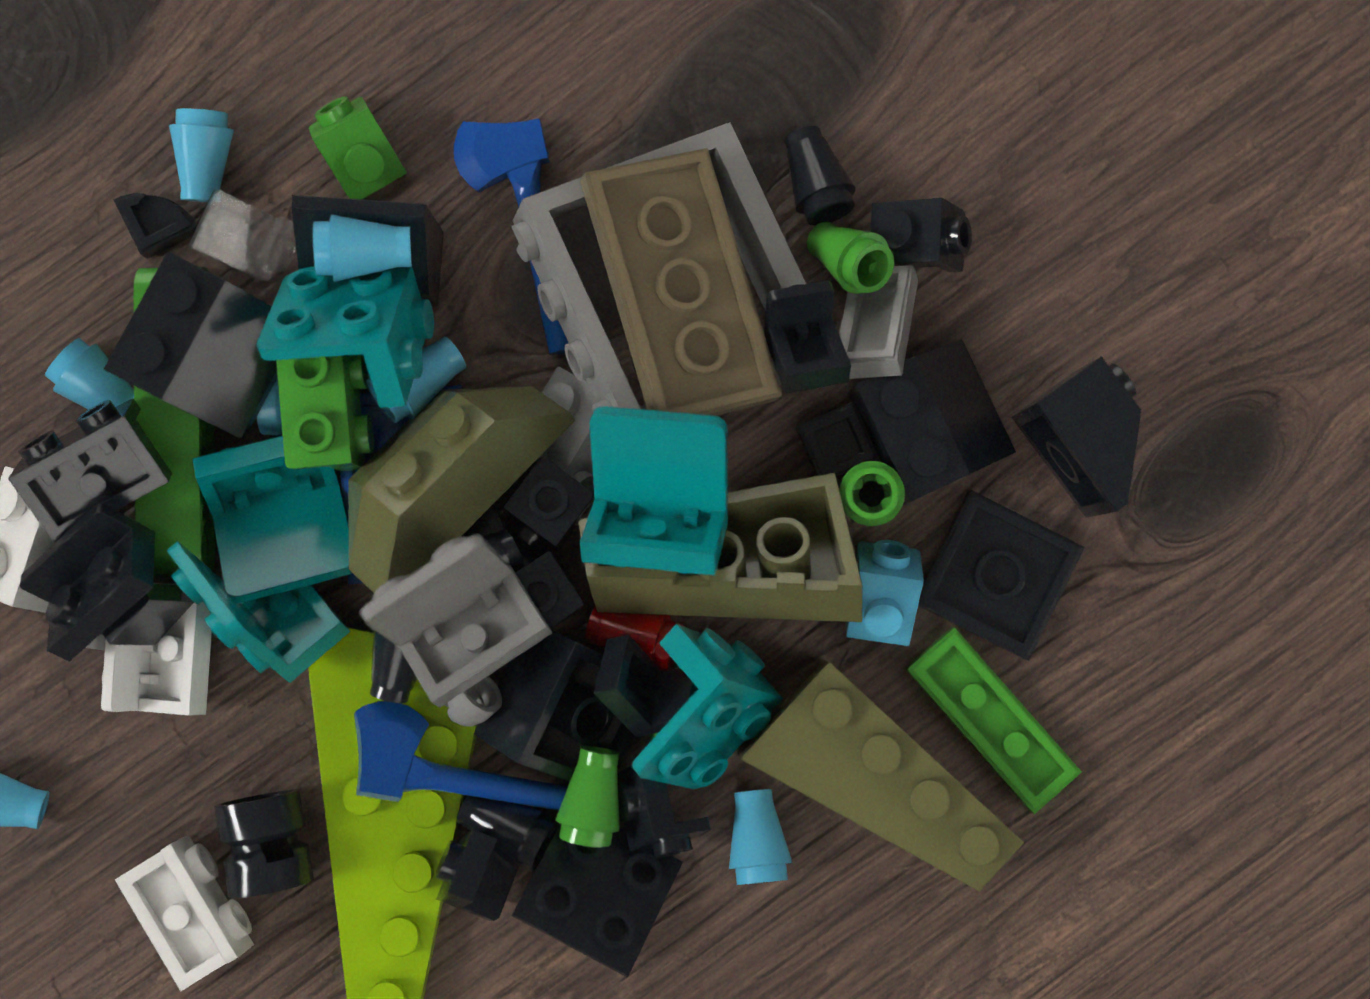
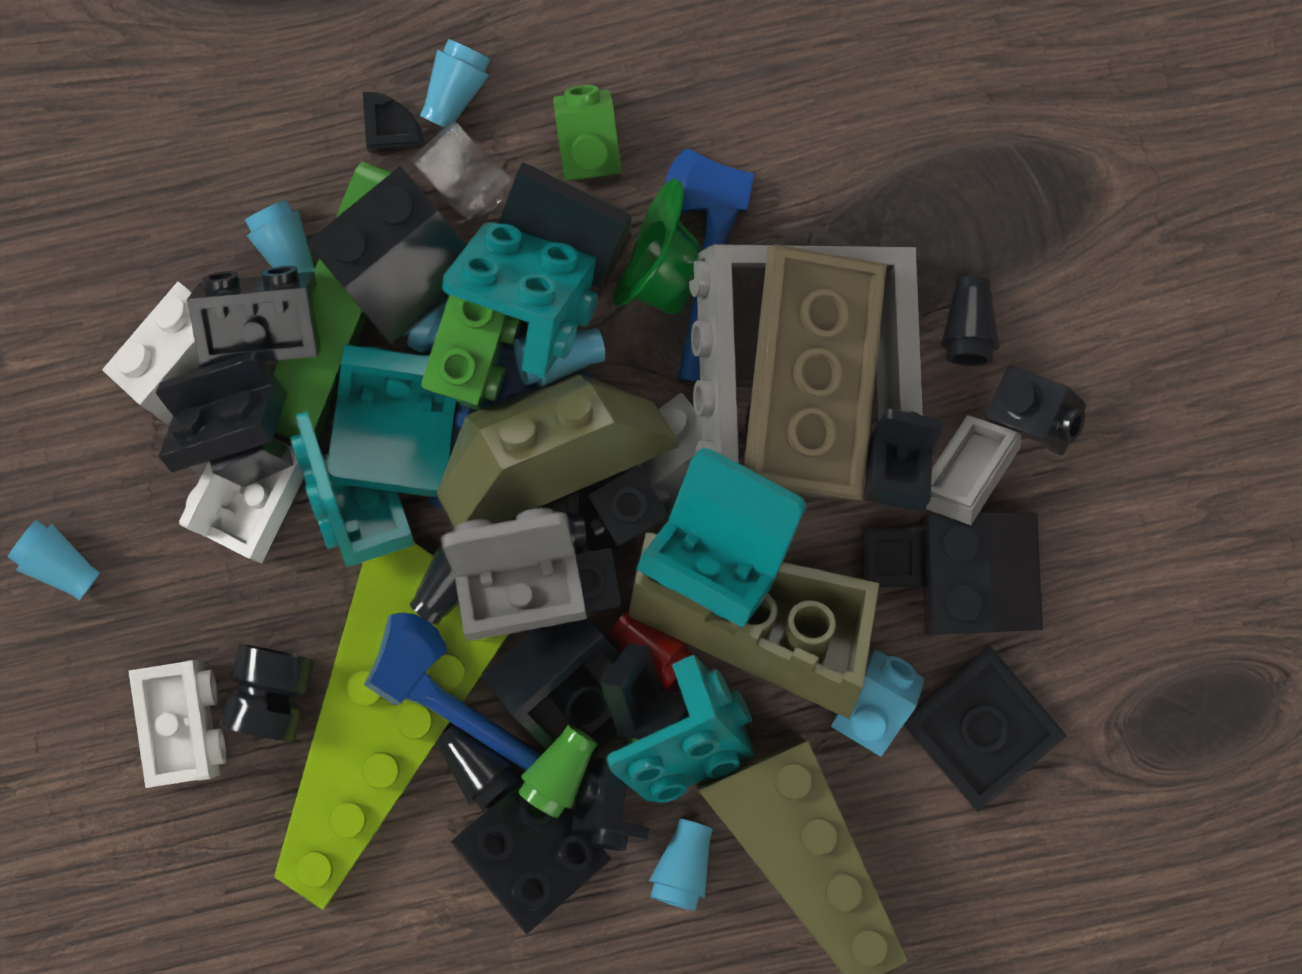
camera: 20 degrees right, 0 degrees up
(358, 247) = (560, 229): medium azure cone -> none
(475, 703) = (494, 651): light grey hinge -> none
(475, 876) = (432, 795): black bracket -> none
(480, 239) = (661, 256): none -> green piece
(852, 256) = (972, 406): bright green cone -> none
(882, 475) = (903, 633): bright green cone -> none
(993, 720) = (926, 850): bright green tile -> none
(1087, 435) = (1107, 640): black slope -> none

